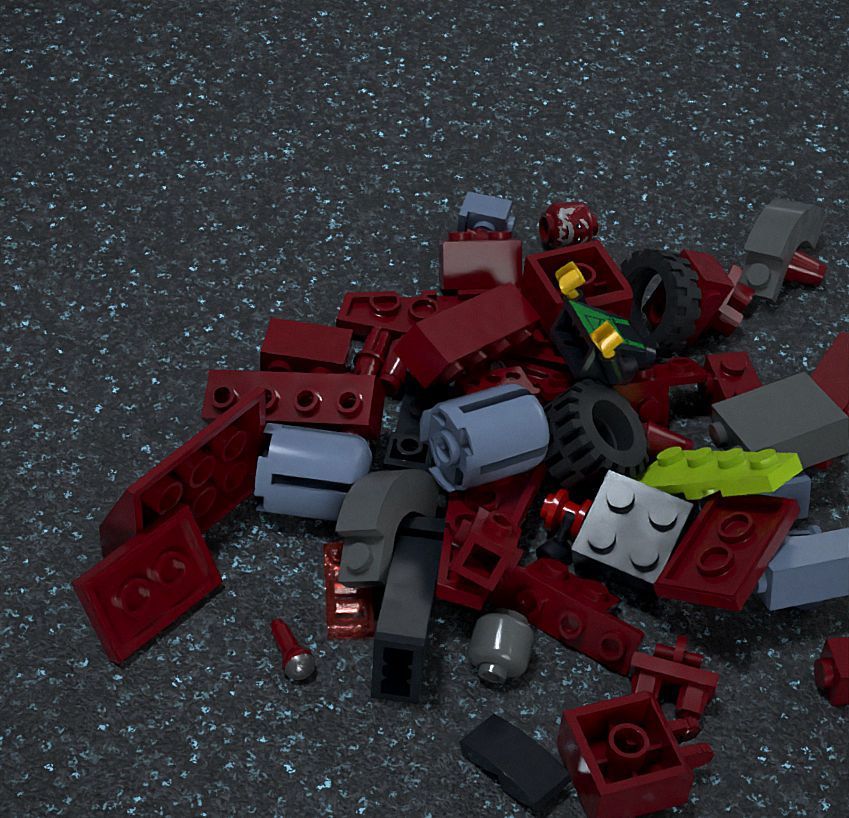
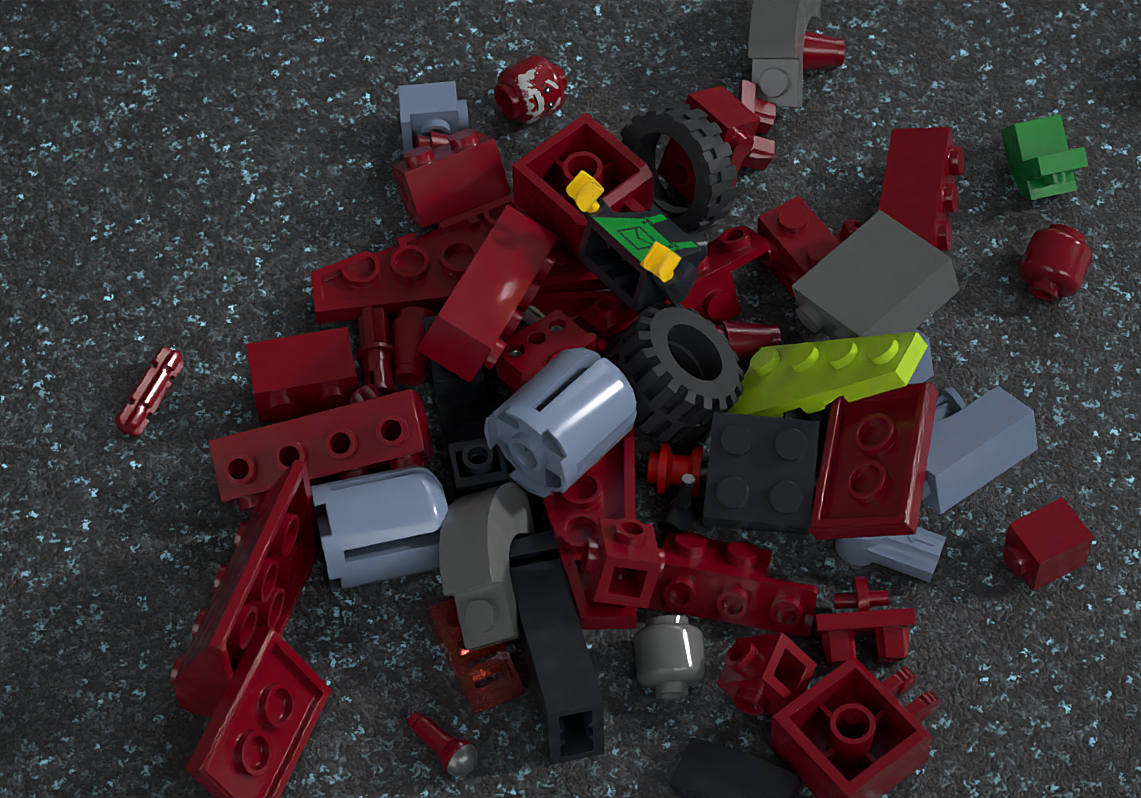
camera: 15 degrees left, 10 degrees up
(189, 334) = (149, 391): none -> dark red axle
(573, 680) = (765, 673): none -> dark red brick
(724, 628) = (908, 554): none -> sand blue piece

